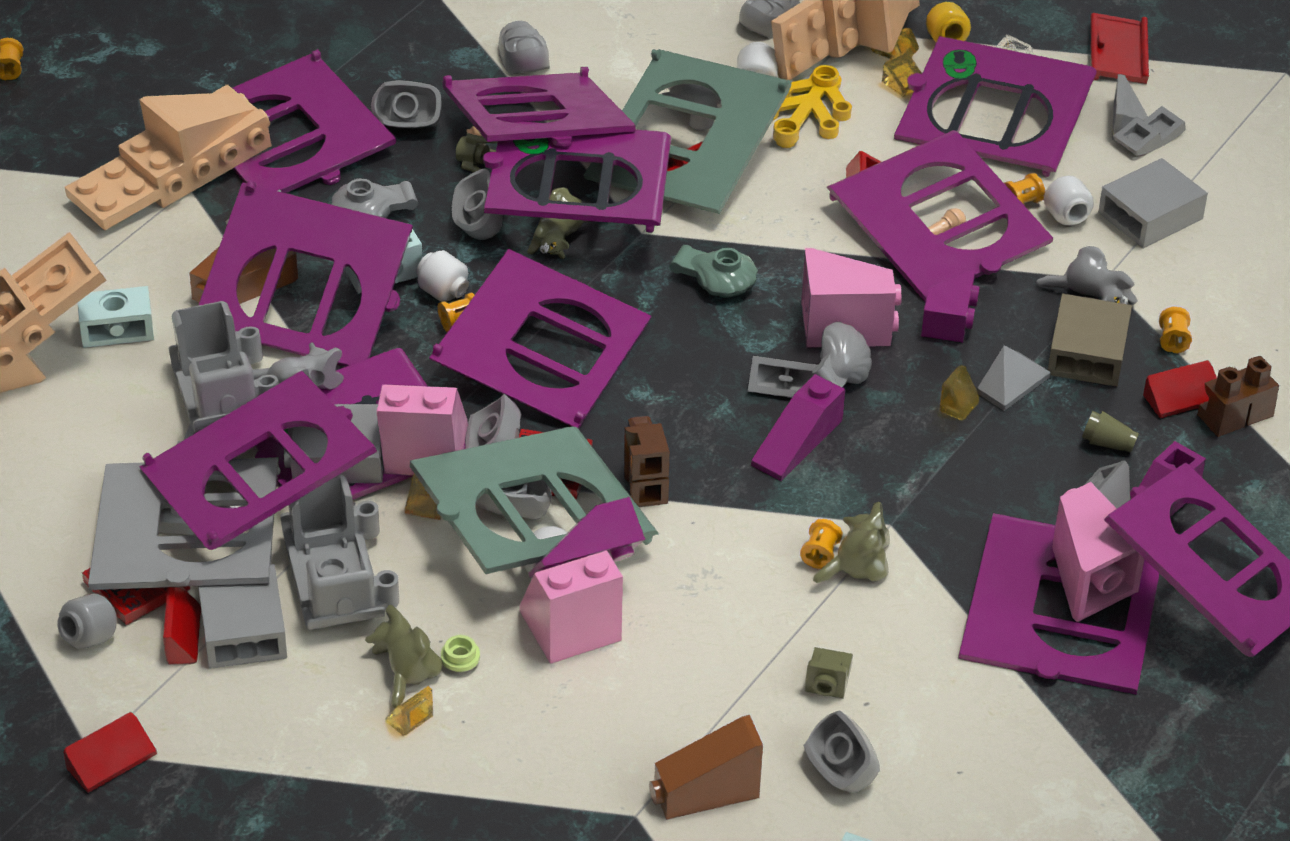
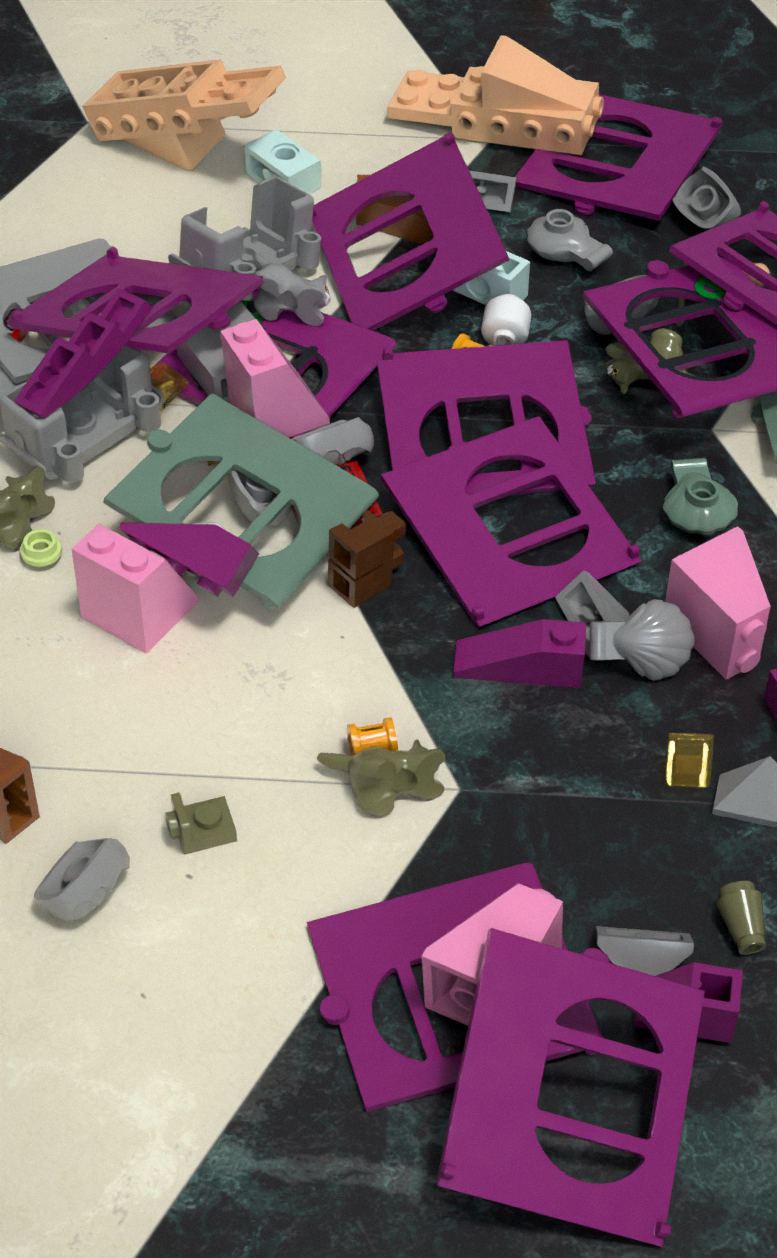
camera: 60 degrees right, 5 degrees up
(327, 503) = (76, 362): none -> magenta slope
(707, 416) = (464, 550): none -> magenta door

